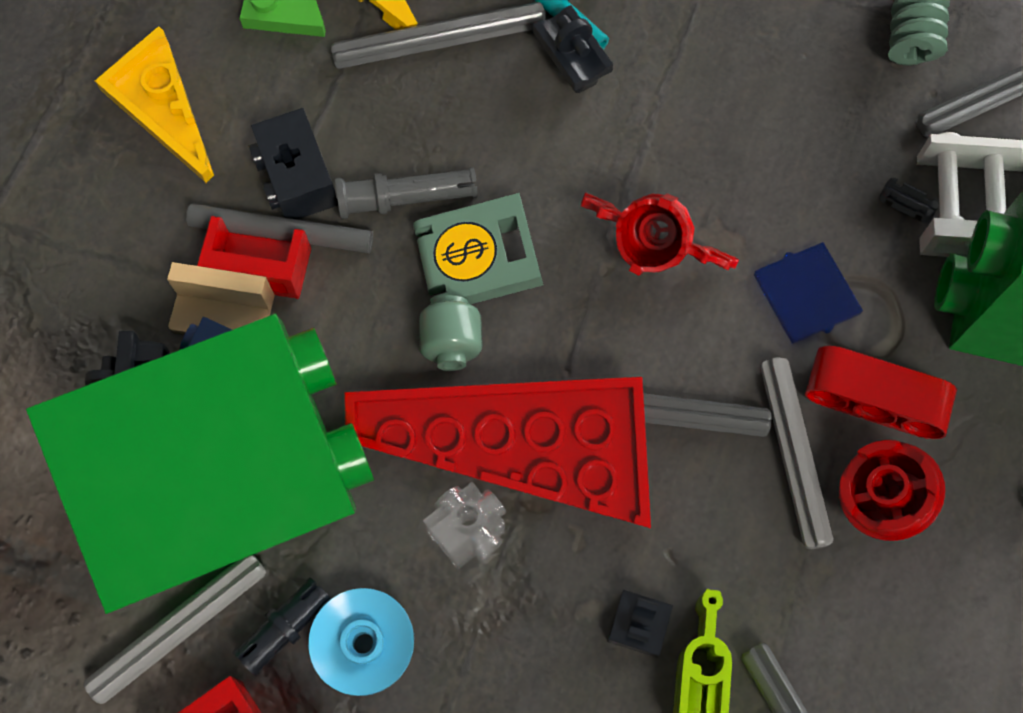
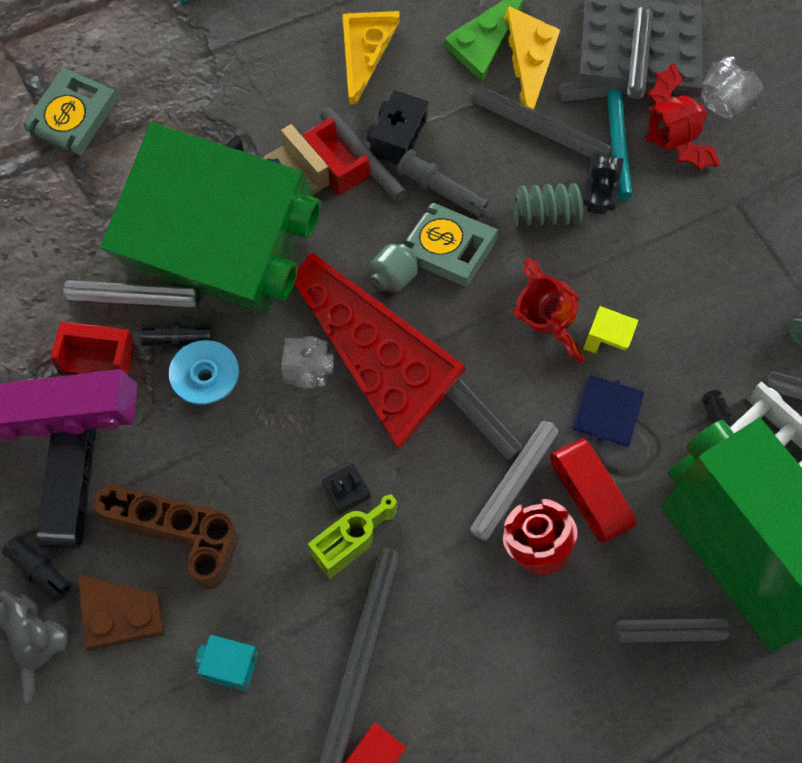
camera: 40 degrees right, 5 degrees down
(539, 118) = (548, 203): none -> sand green piece
(736, 205) = (610, 329): none -> neon yellow panel

